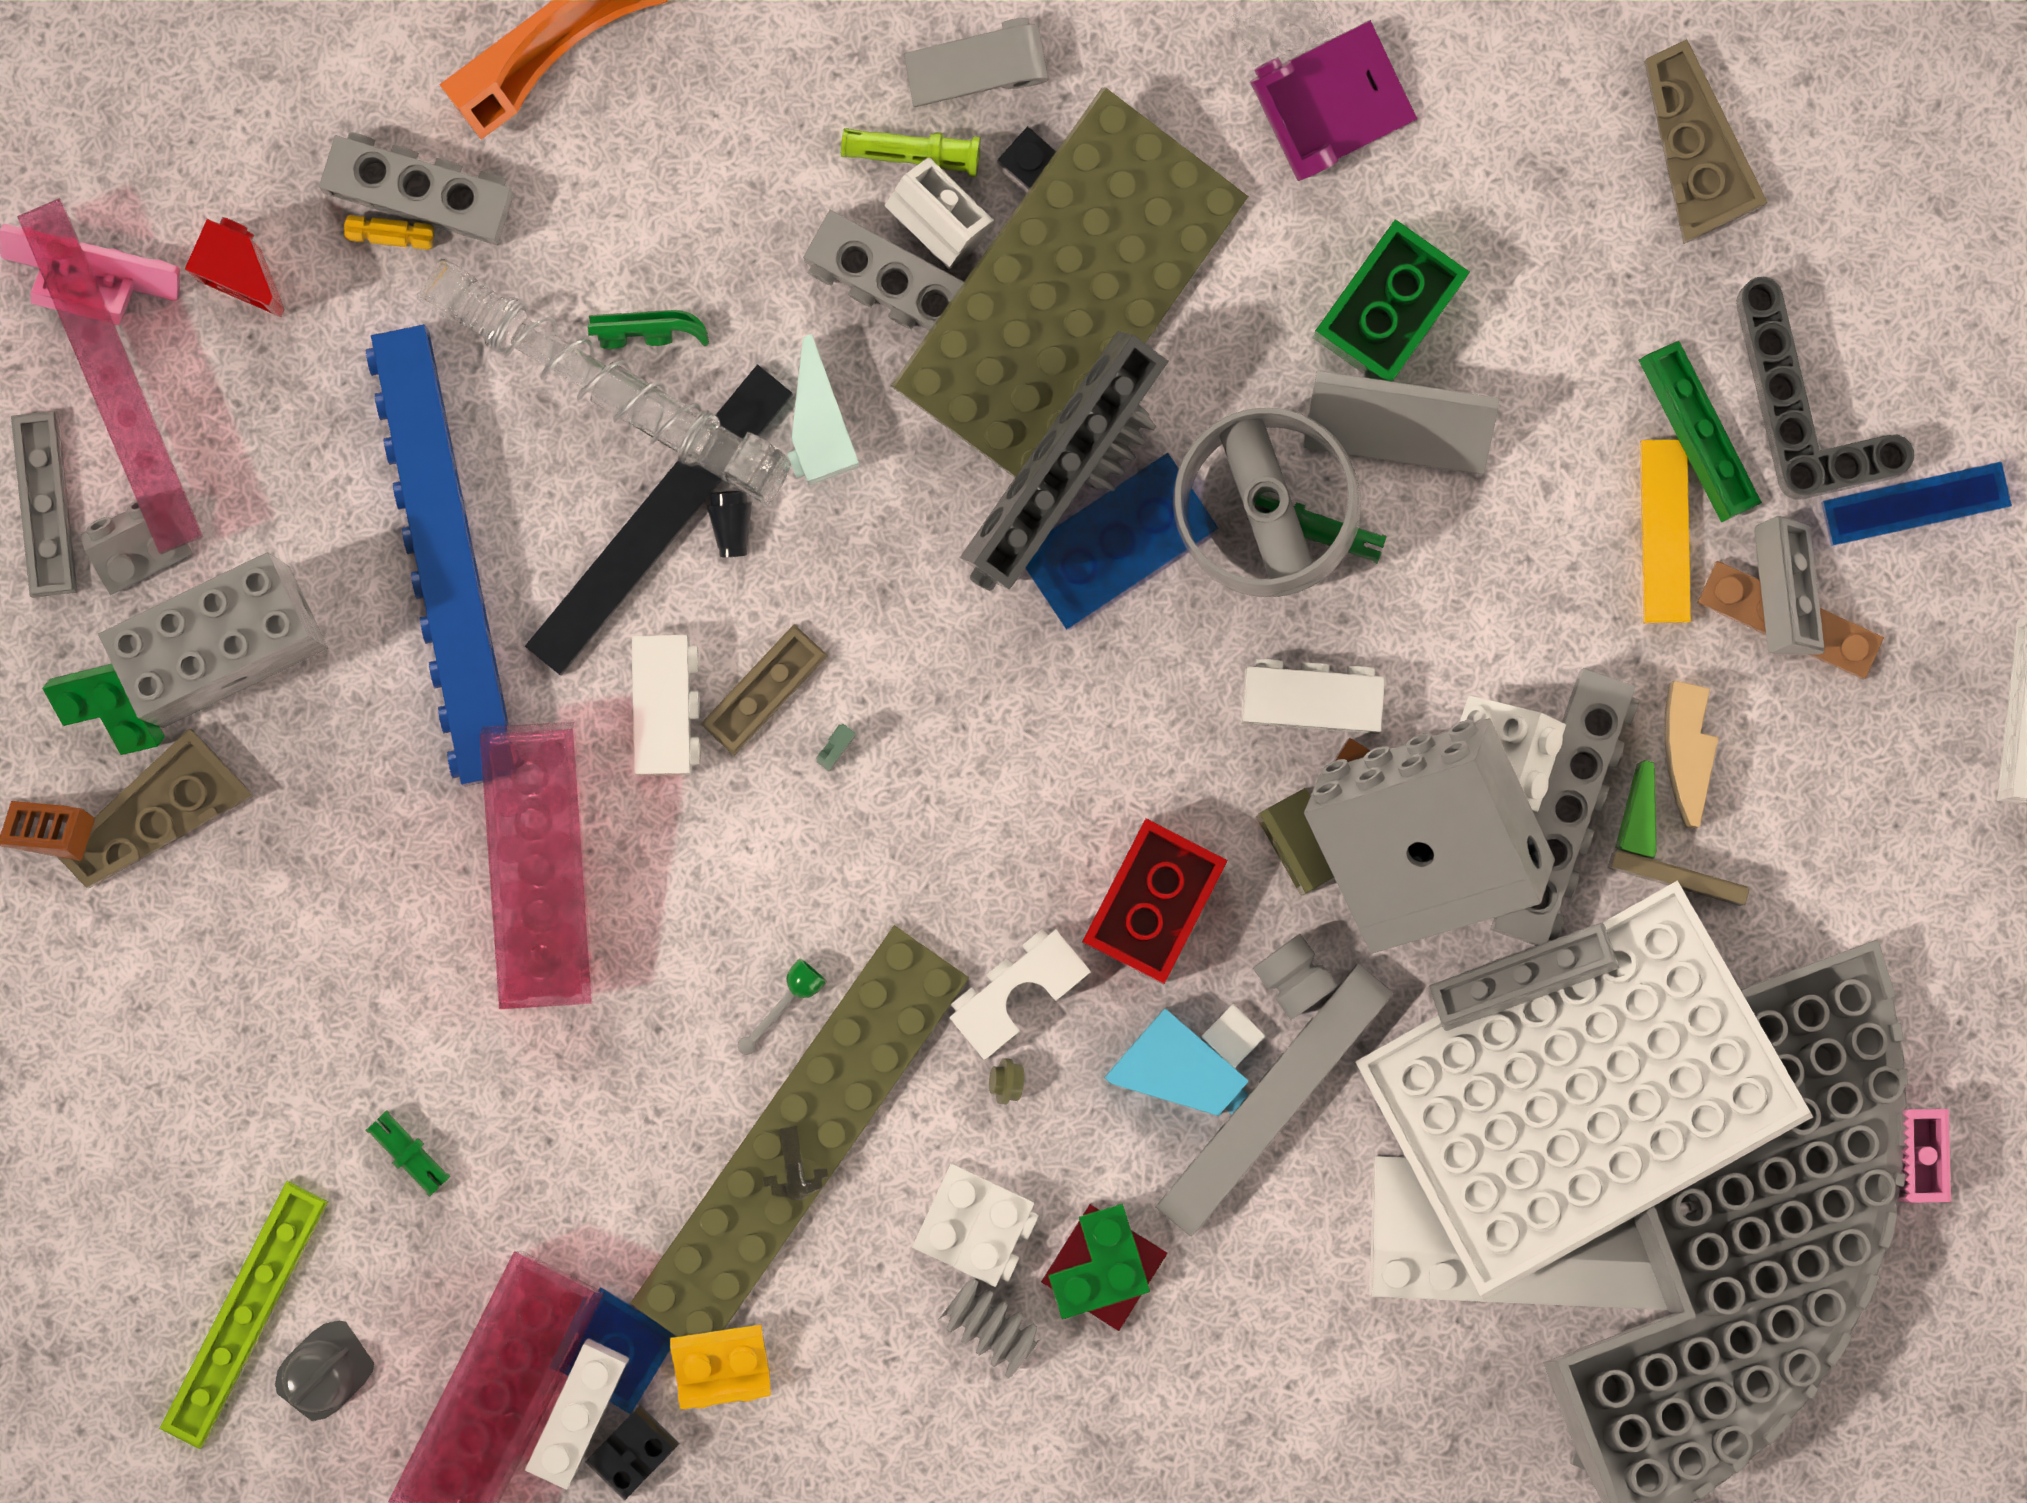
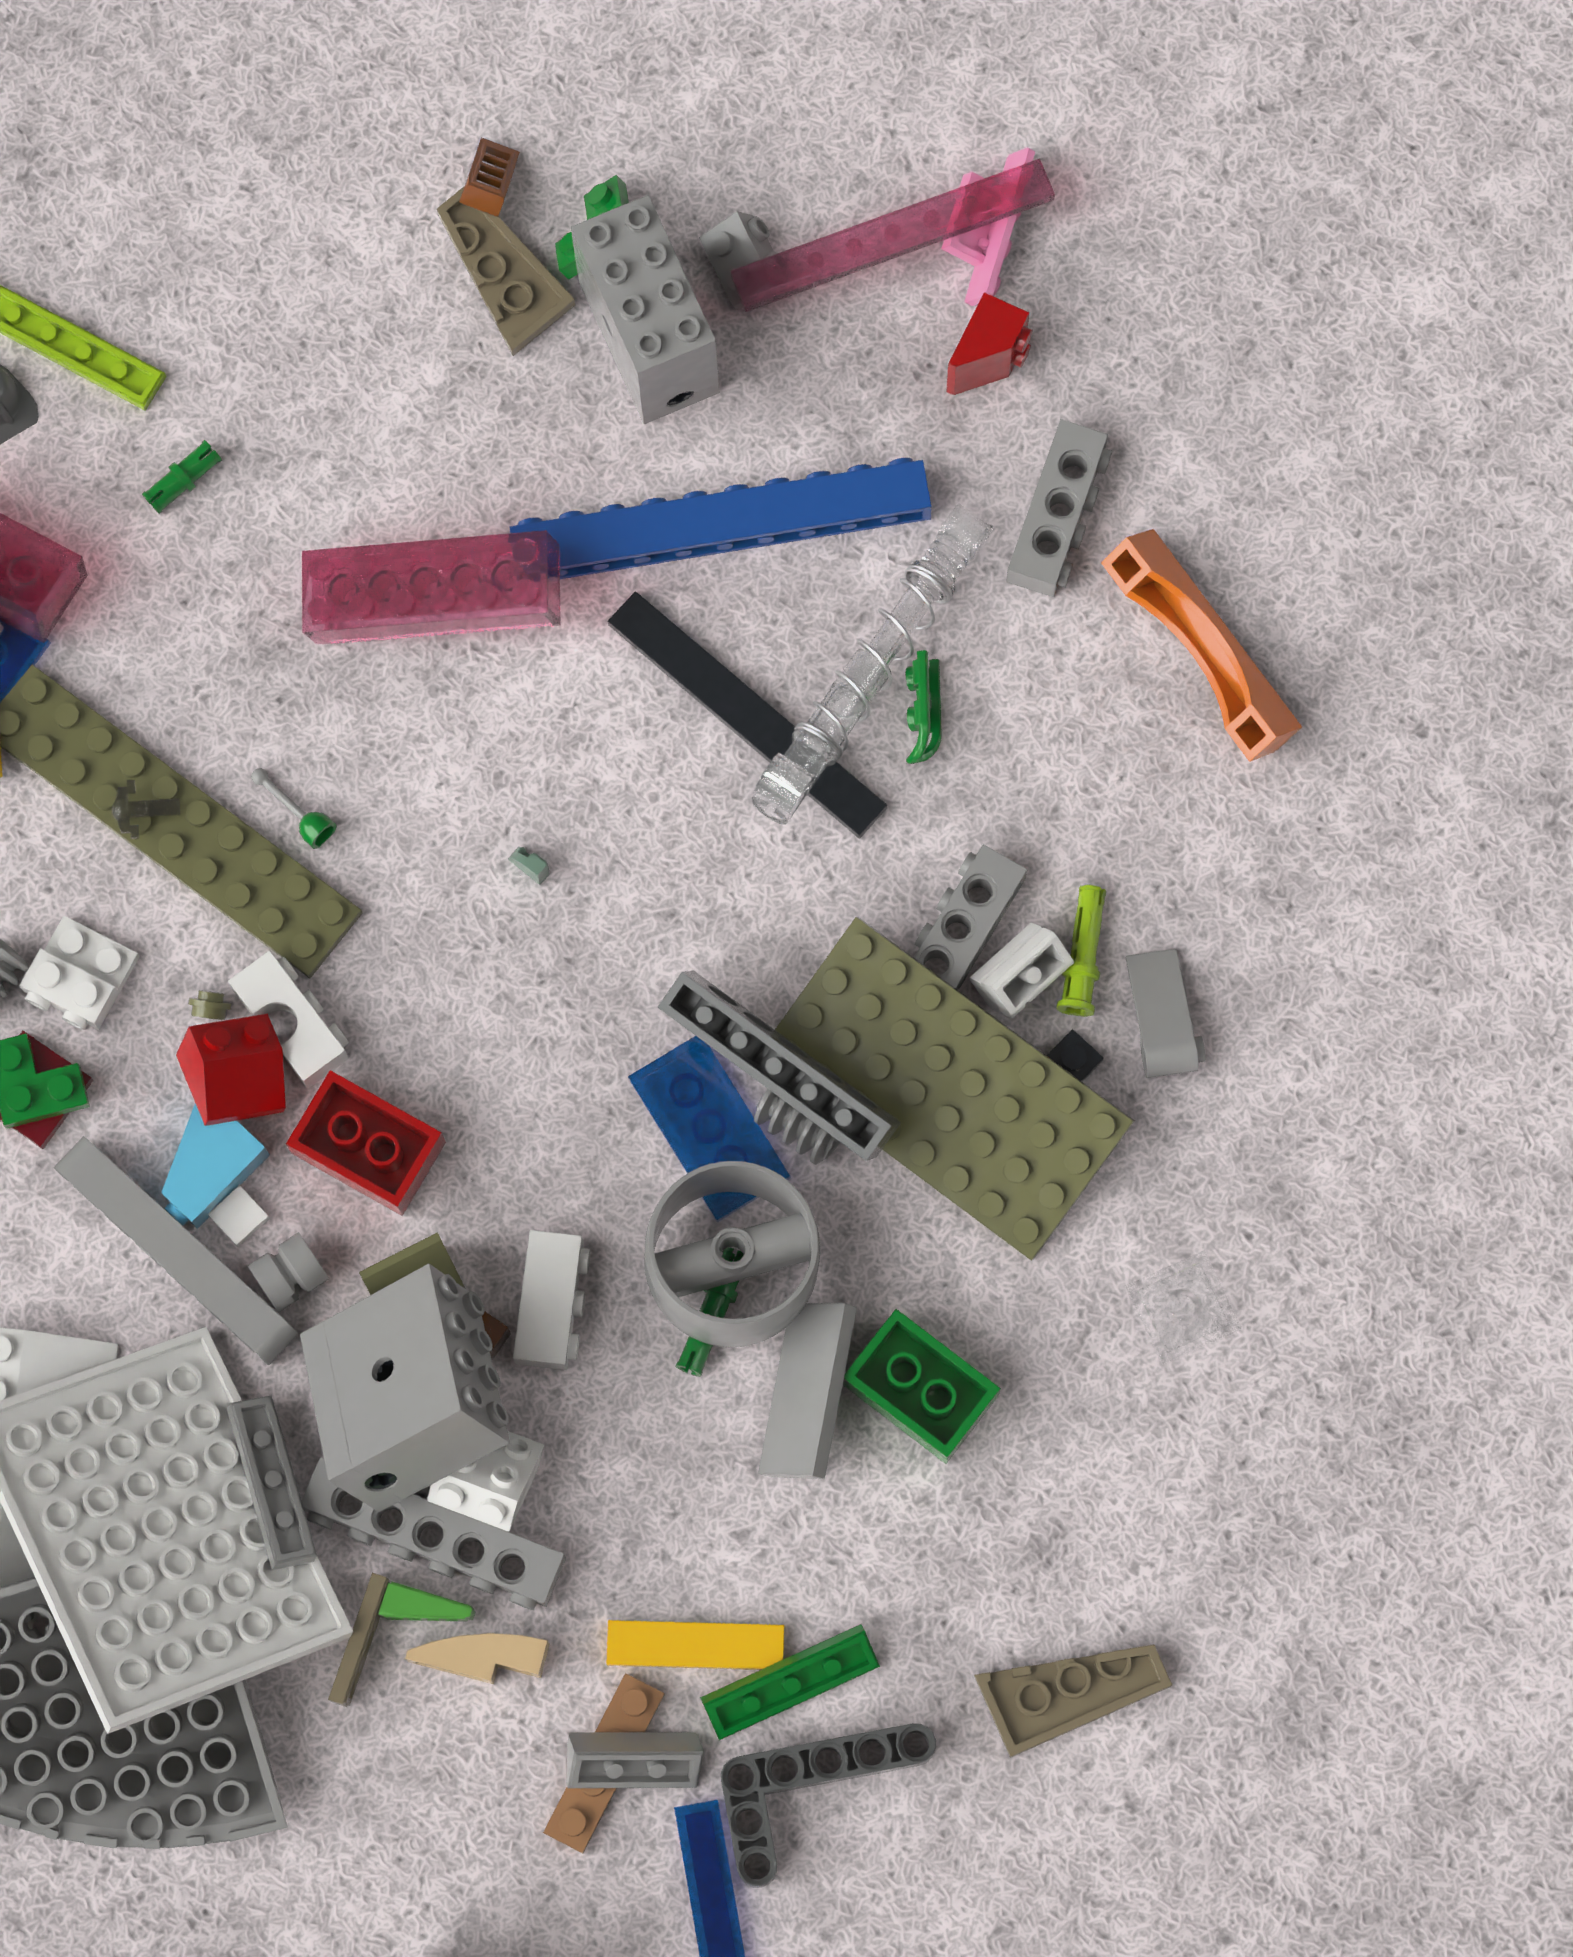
camera: 95 degrees right, 10 degrees down
(44, 504) = (784, 185): light grey tile -> none
(389, 232) = (1020, 485): yellow axle -> none
(664, 705) = (574, 710): white brick -> none
(730, 522) = (737, 775): black cone -> none
(764, 689) = (585, 802): dark tan tile -> none
(818, 427) = (828, 856): light aqua slope -> none
(1083, 1046) = (234, 1069): none -> red slope
(1332, 99) = (1118, 1336): magenta door -> none
(1926, 1156) = (75, 1862): bright pink brick -> none

